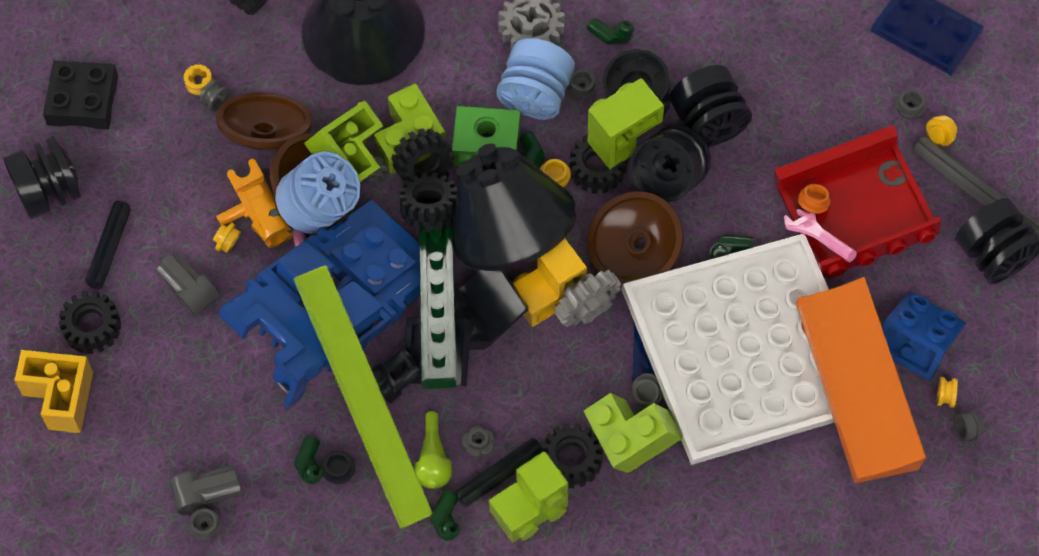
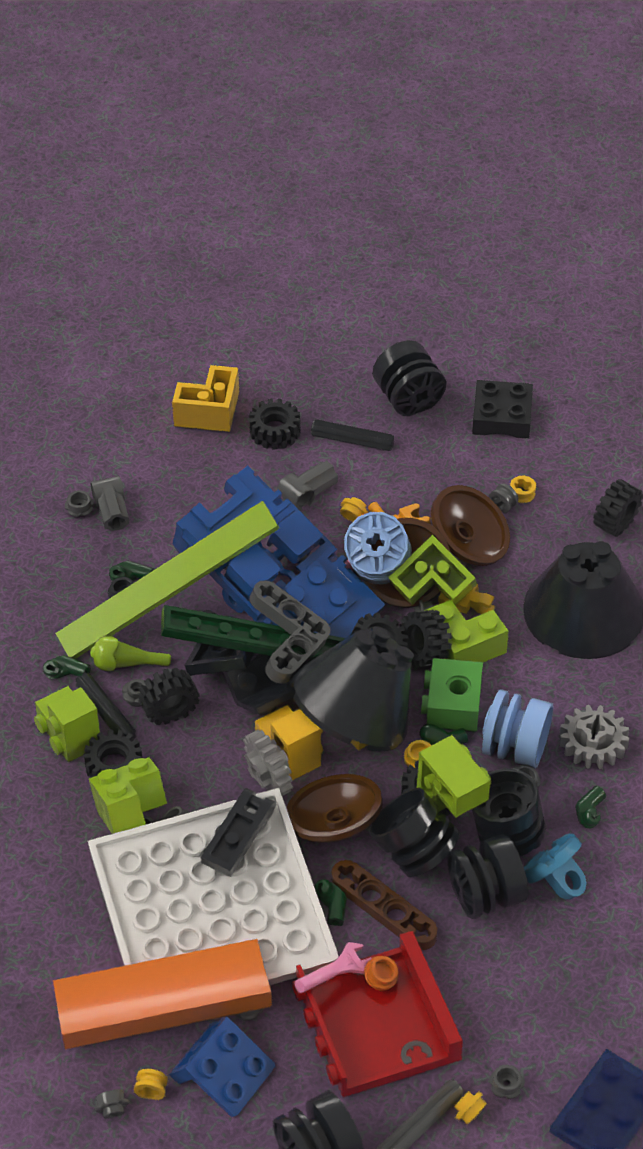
camera: 90 degrees right, 15 degrees down
(436, 261) = (300, 635): none -> dark grey beam
(498, 400) = (168, 696): none -> black tyre
(683, 314) = (237, 832): none -> black plate
(684, 51) = (556, 863): none -> dark azure tile
(734, 206) = (388, 901): none -> reddish brown beam

